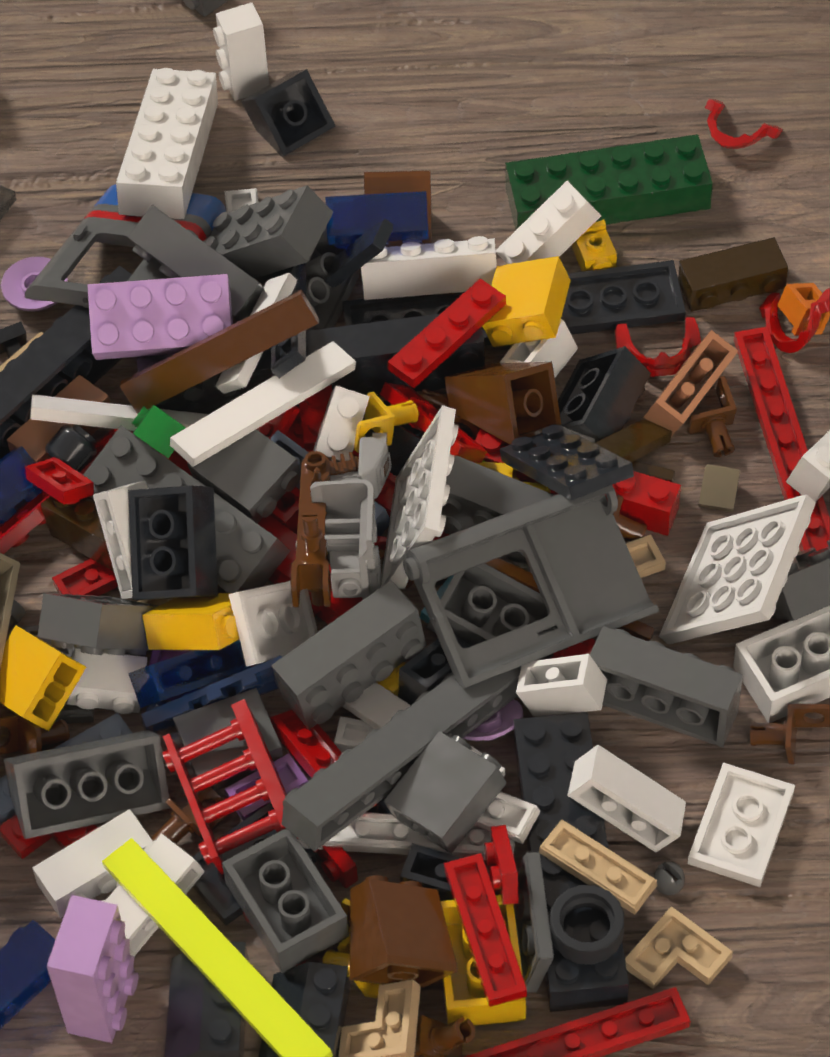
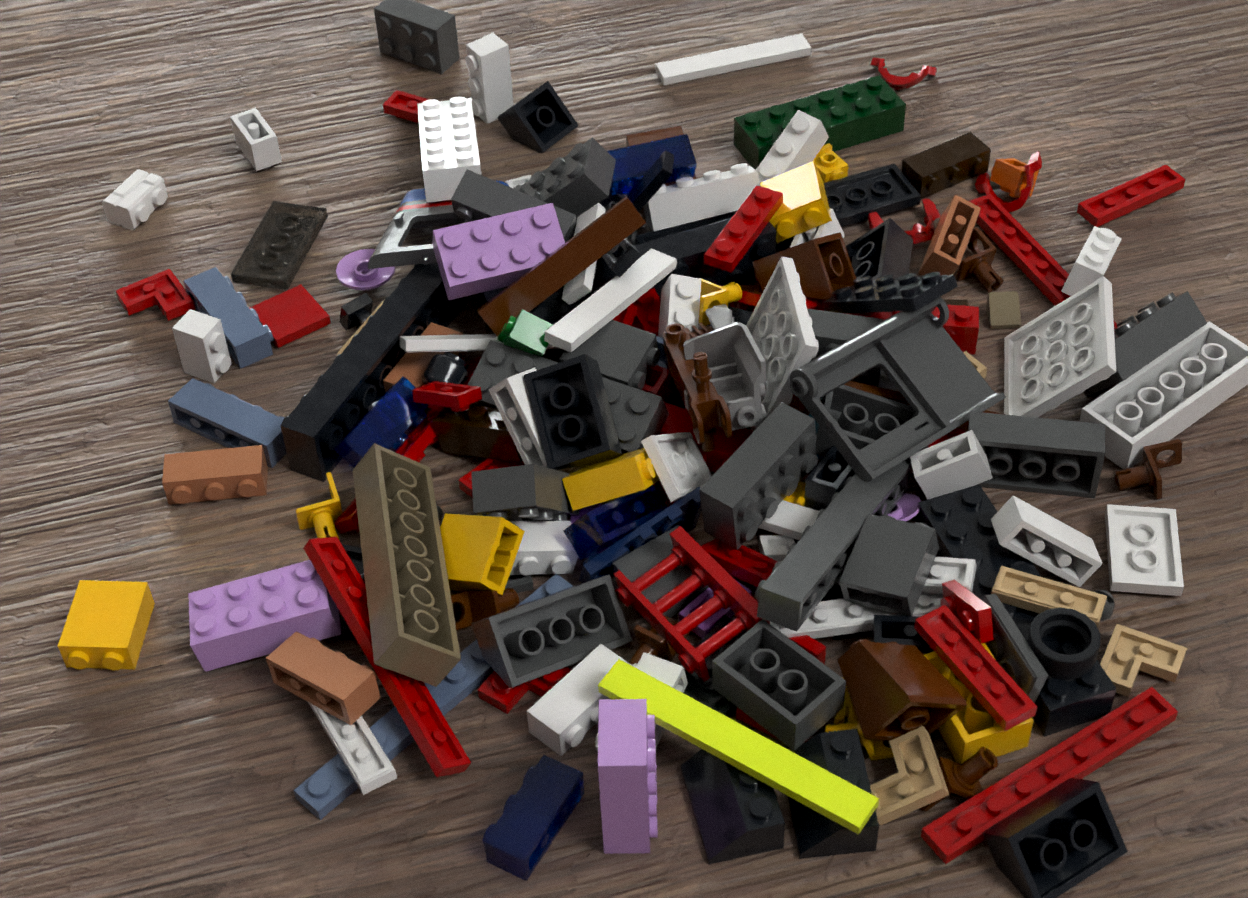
camera: 15 degrees left, 10 degrees down
(144, 57) = (403, 105): none -> red plate
(548, 64) = (733, 59): none -> white tile

